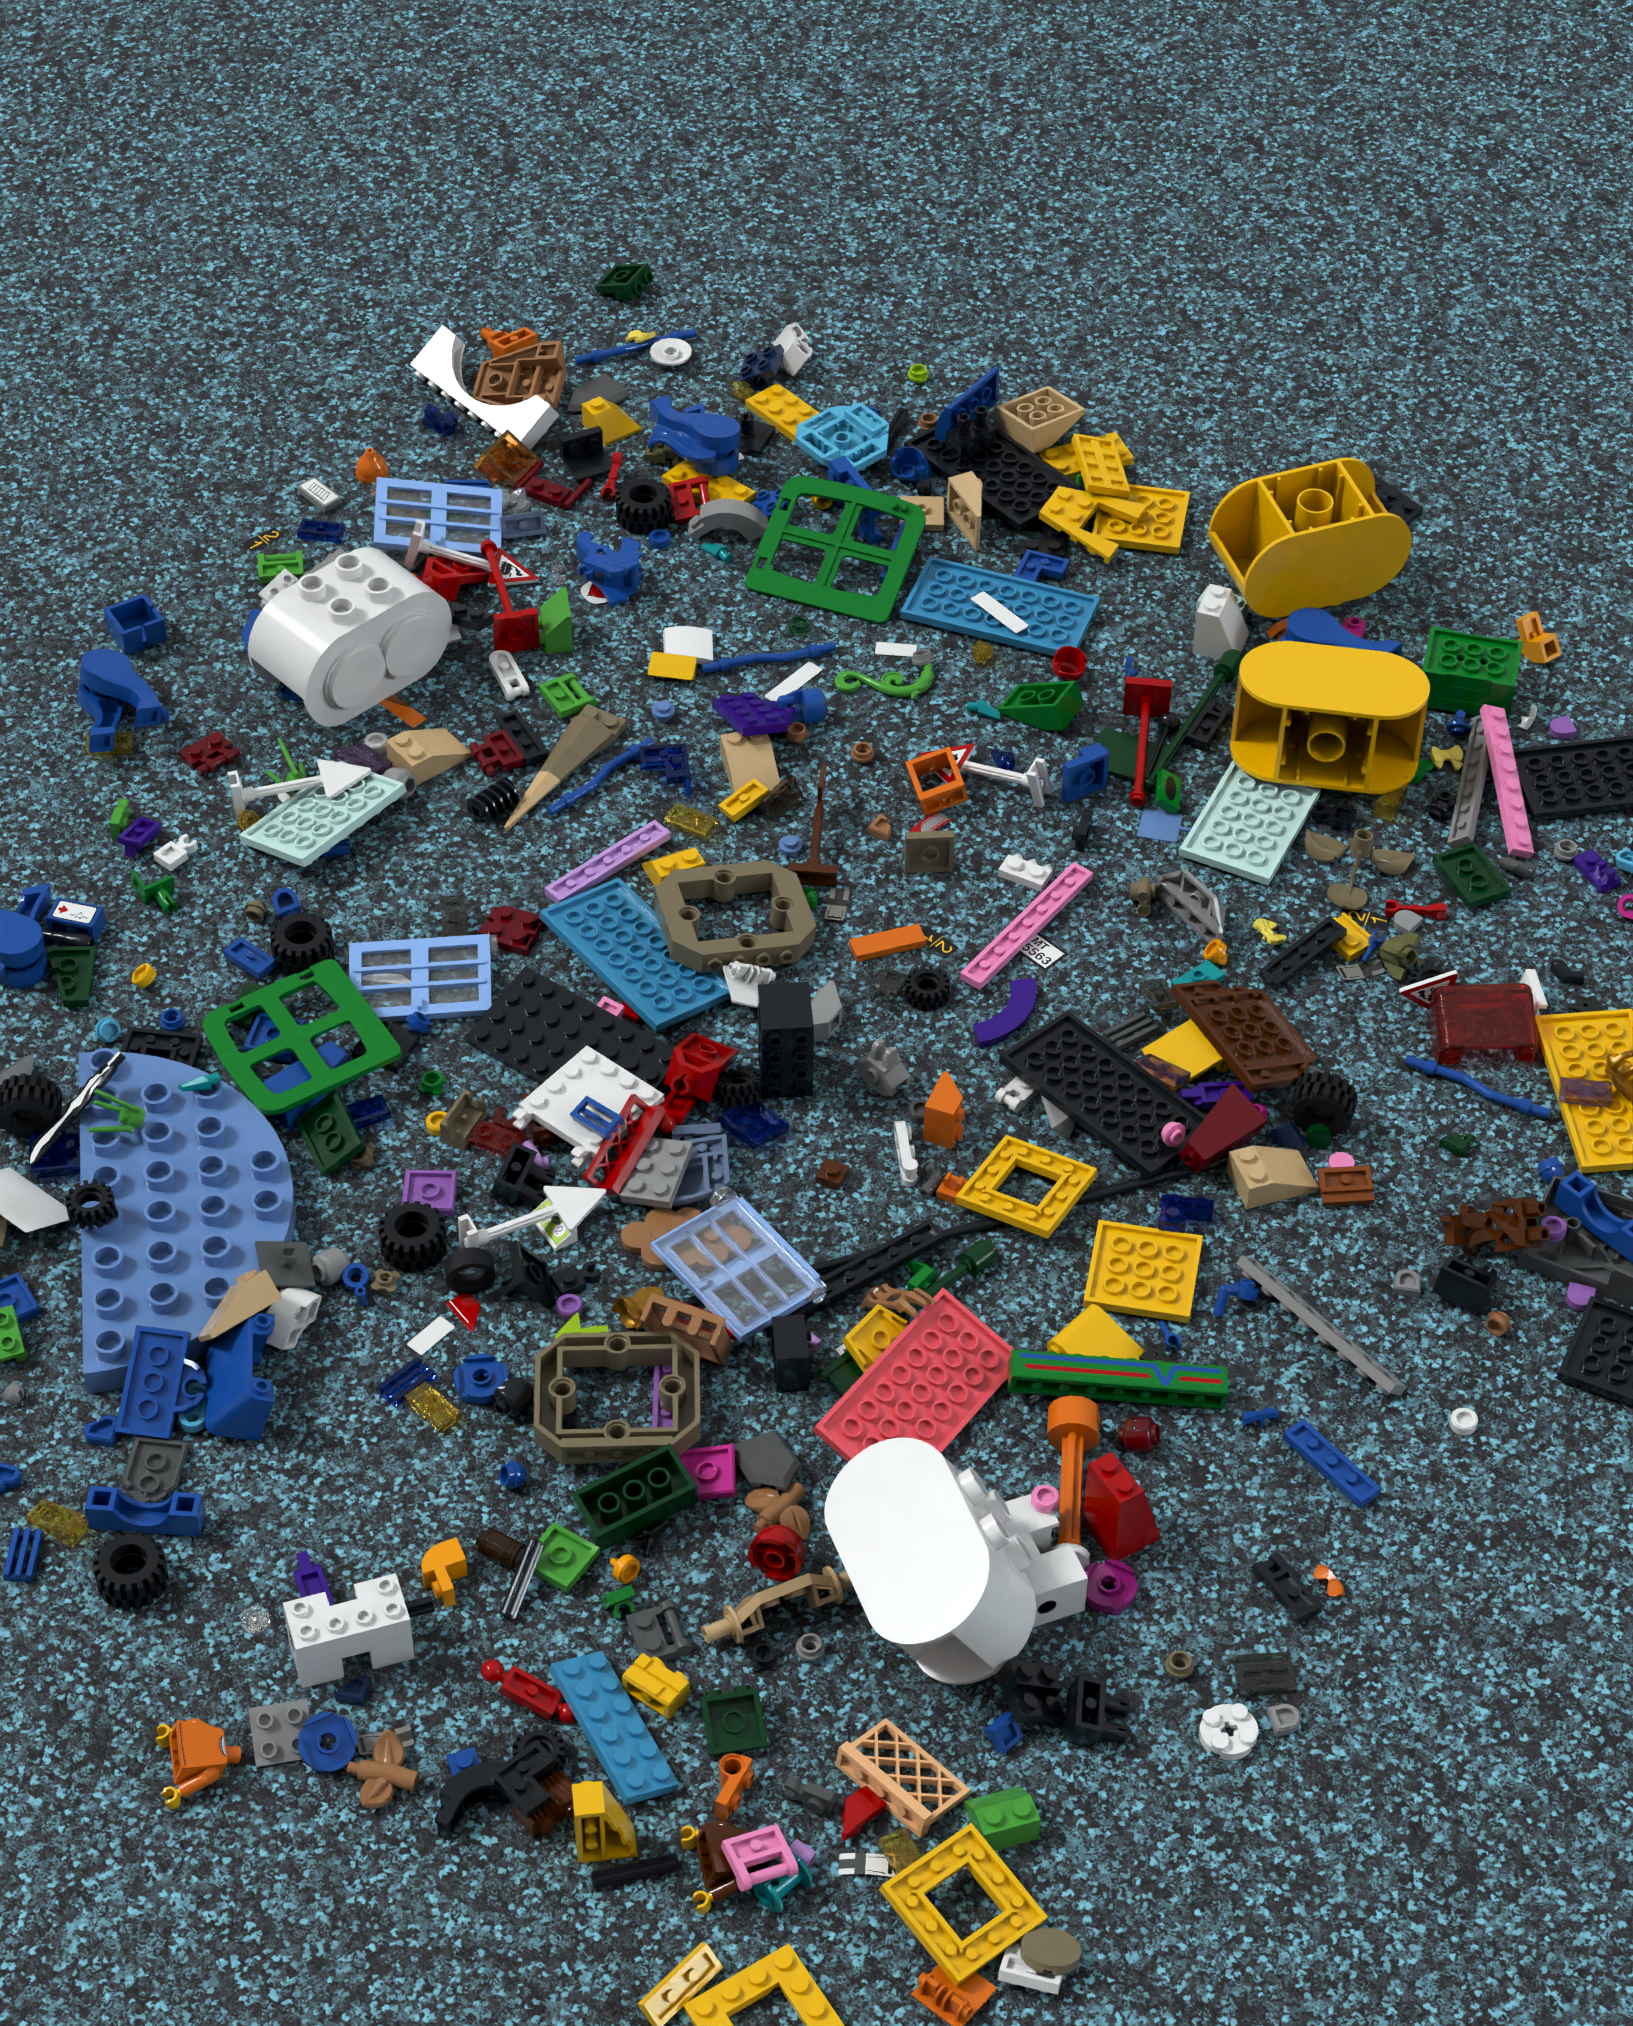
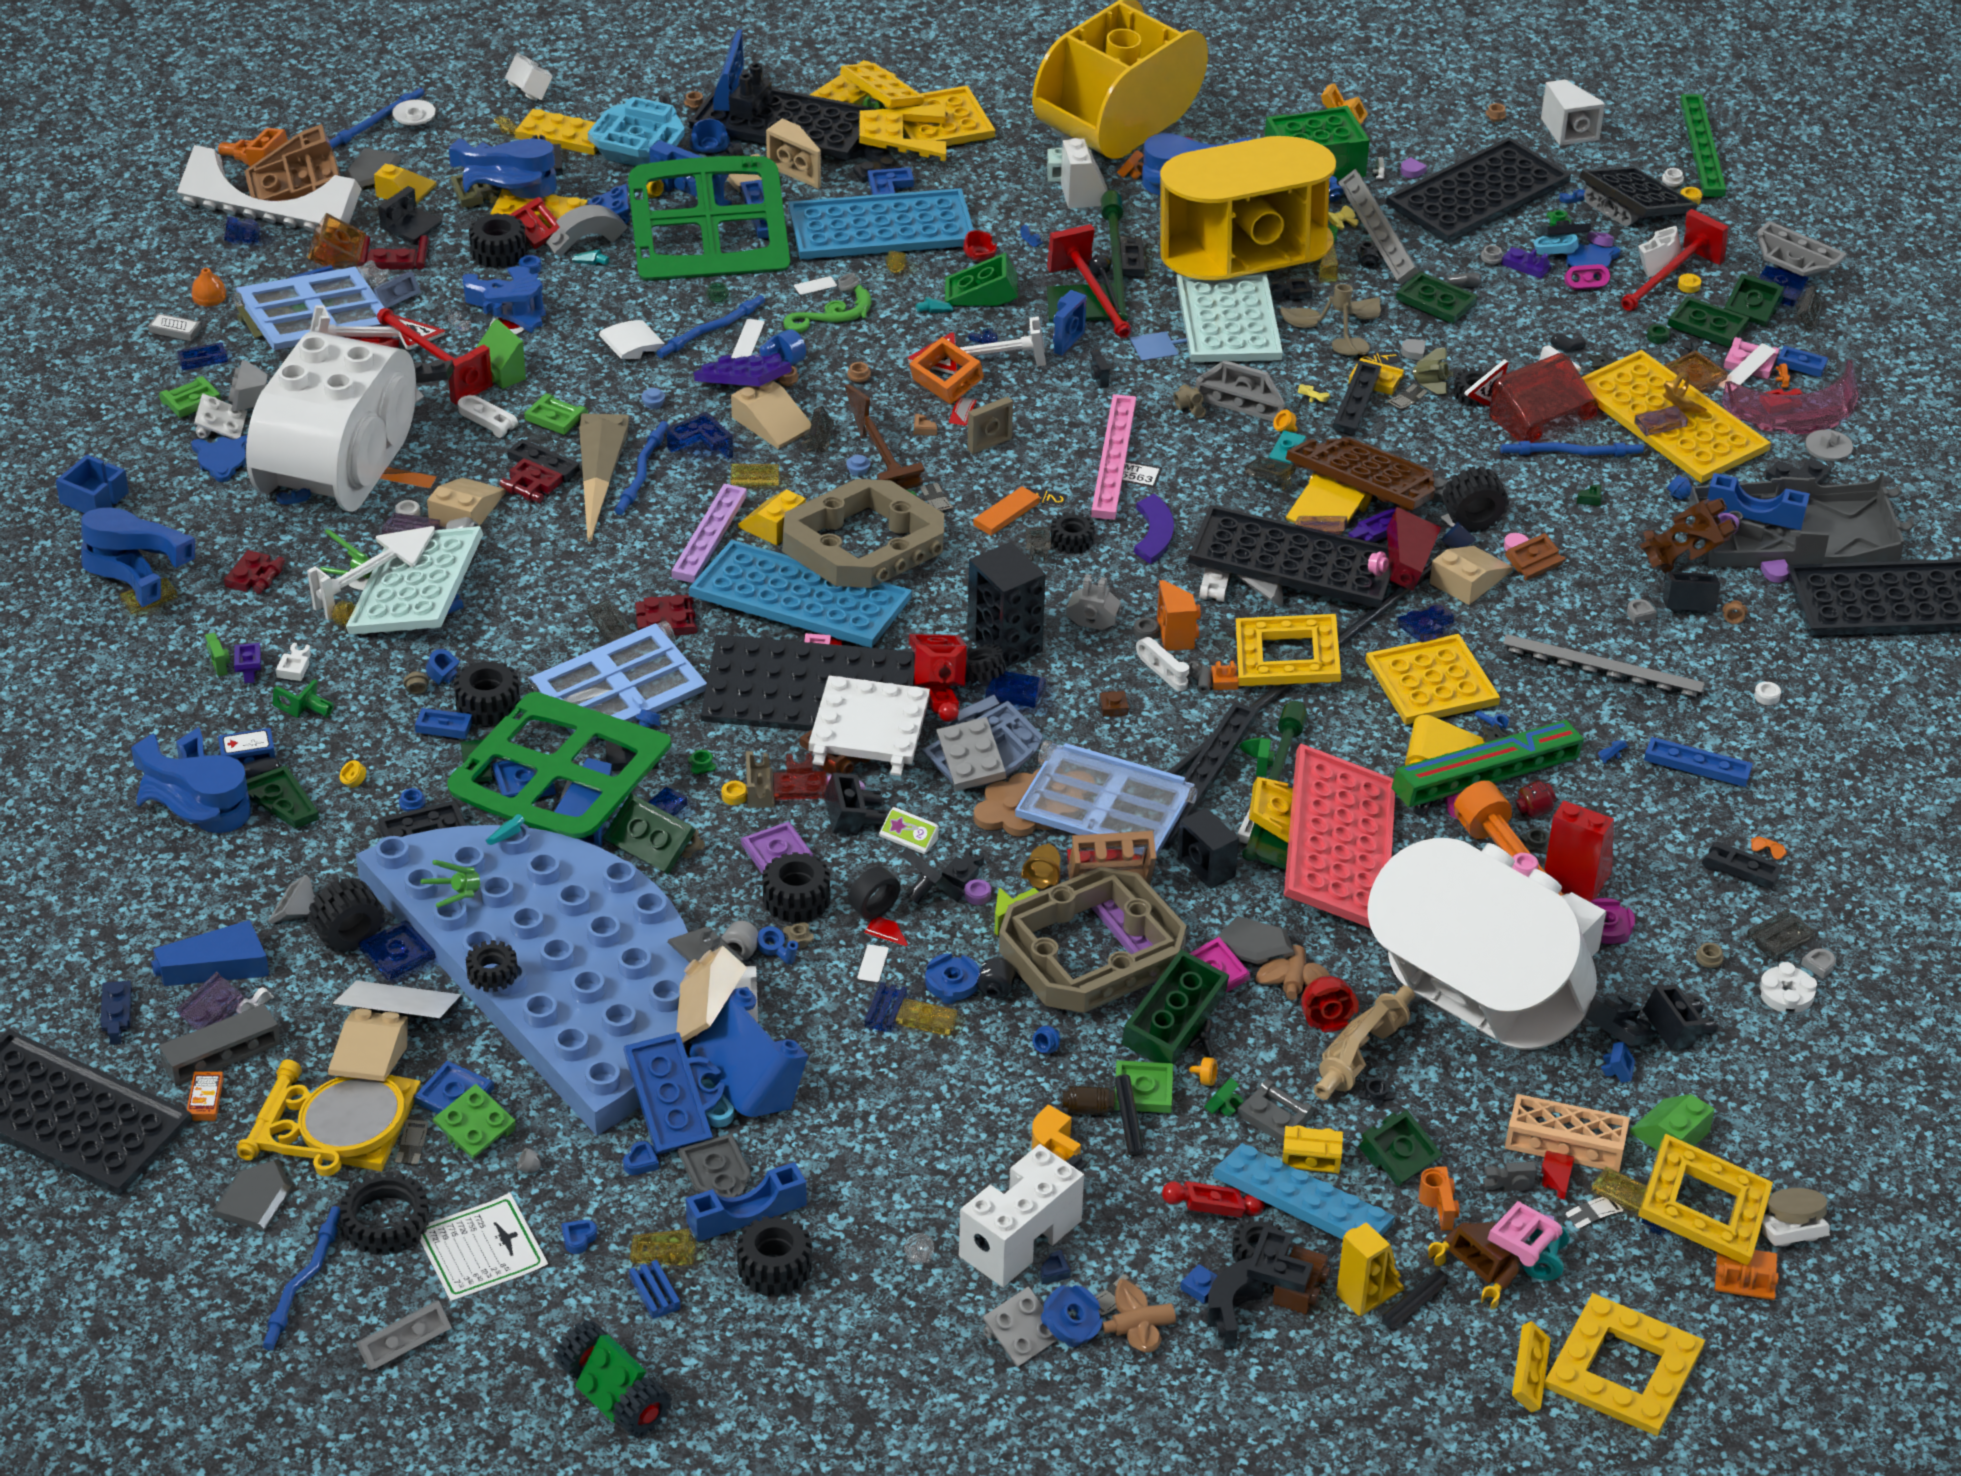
camera: 30 degrees left, 5 degrees down
(75, 1107) = (398, 897): black sword -> none
(107, 1030) = (358, 830): medium azure plate -> none
(196, 1756) = (965, 1374): orange torso -> none
(263, 539) = (149, 382): black sticker -> none
(310, 1578) = (941, 1197): dark purple hinge -> none
(493, 800) = (564, 518): black piece -> none
(568, 1203) = (915, 806): white piece -> none
(609, 487) = (450, 237): red piece -> none
(609, 1127) = (893, 729): blue tile -> none
(625, 281) = (322, 66): dark green plate -> none
(632, 1148) = (934, 742): red fence -> none
(638, 336) = (364, 110): light yellow piece -> none
(672, 666) = (633, 358): yellow slope -> none
(743, 800) = (790, 442): yellow plate -> none
(744, 981) = (920, 580): white hinge -> none
(761, 366) = (507, 97): dark blue plate -> none
(810, 1641) = (1410, 1067): light grey plate -> none
(885, 1294) = (1276, 767): medium nougat piece -> none
(918, 373) = (652, 65): lime plate -> none
(999, 612) = (886, 225): white sticker -> none
(1025, 872) = (1075, 417): white plate -> none
(1038, 418) = (798, 64): tan slope -> none
(1128, 1028) = (1265, 494): dark grey tile -> none
(1168, 791) = (1143, 316): green tile -> none
(1242, 1289) = (1522, 661): blue plate -> none
(1318, 1136) = (1483, 528): dark green tile -> none
(1373, 944) = (1405, 370): blue hand -> none
(1434, 911) = (1427, 334): red piece -> none
(1506, 781) = (1408, 217): bright pink plate -> none

